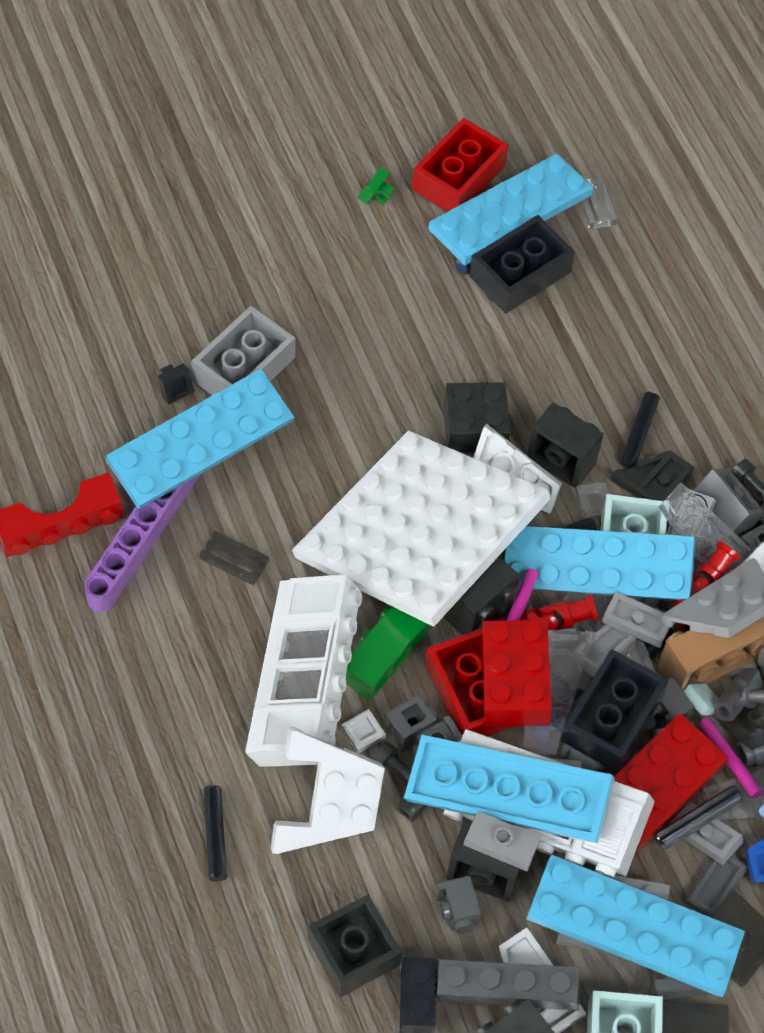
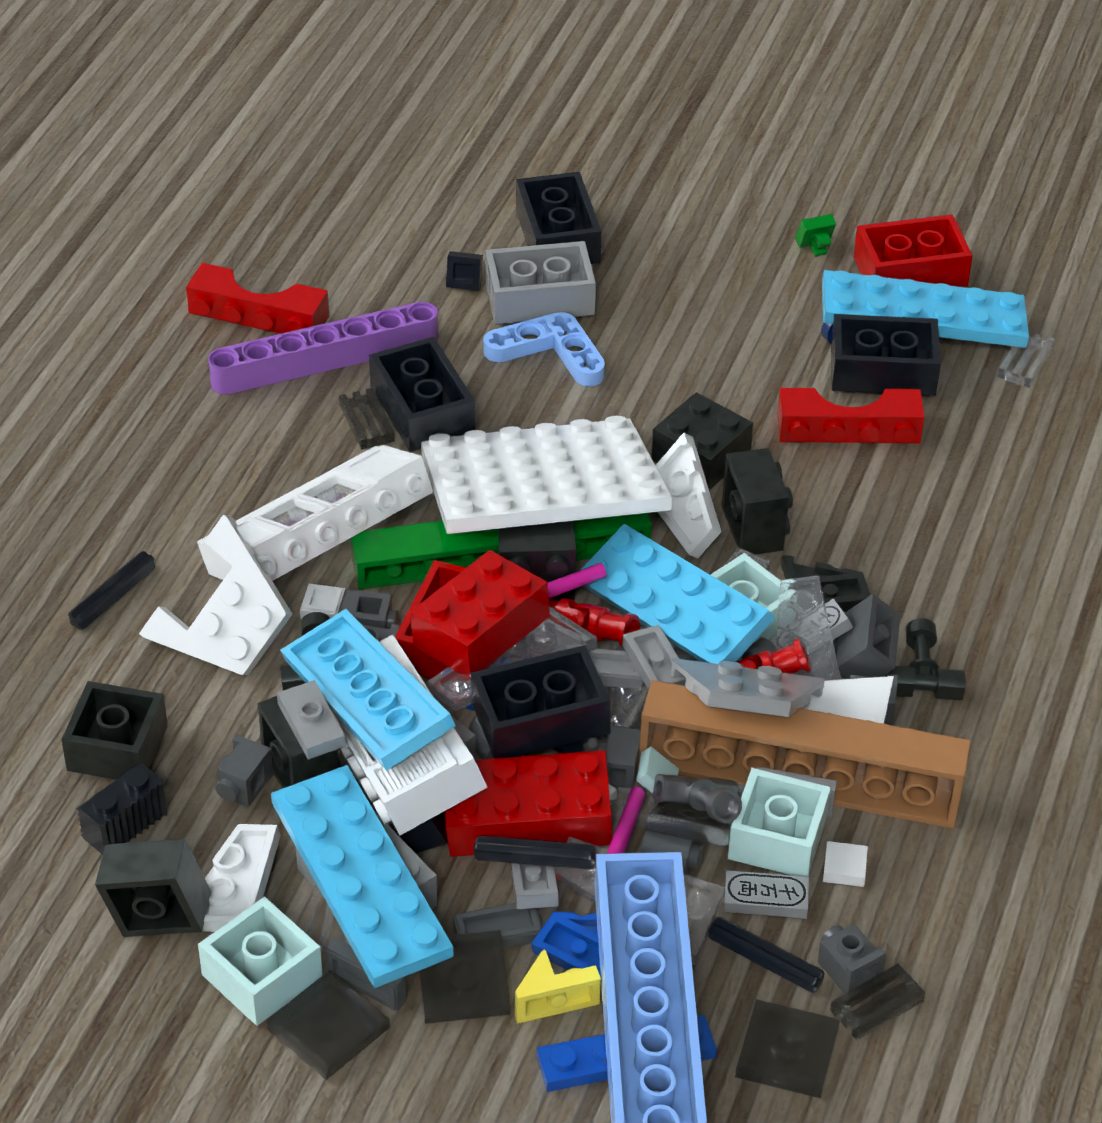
camera: 45 degrees right, 15 degrees down
(199, 293) = (558, 211): none -> black brick
(199, 438) = (425, 304): medium azure plate -> none
(262, 512) = (421, 392): none -> black brick
(307, 385) = (500, 345): none -> light blue beam
(506, 982) = (225, 861): dark grey brick -> none
(518, 348) = (810, 418): none -> red arch
(640, 429) = (859, 544): black axle -> none

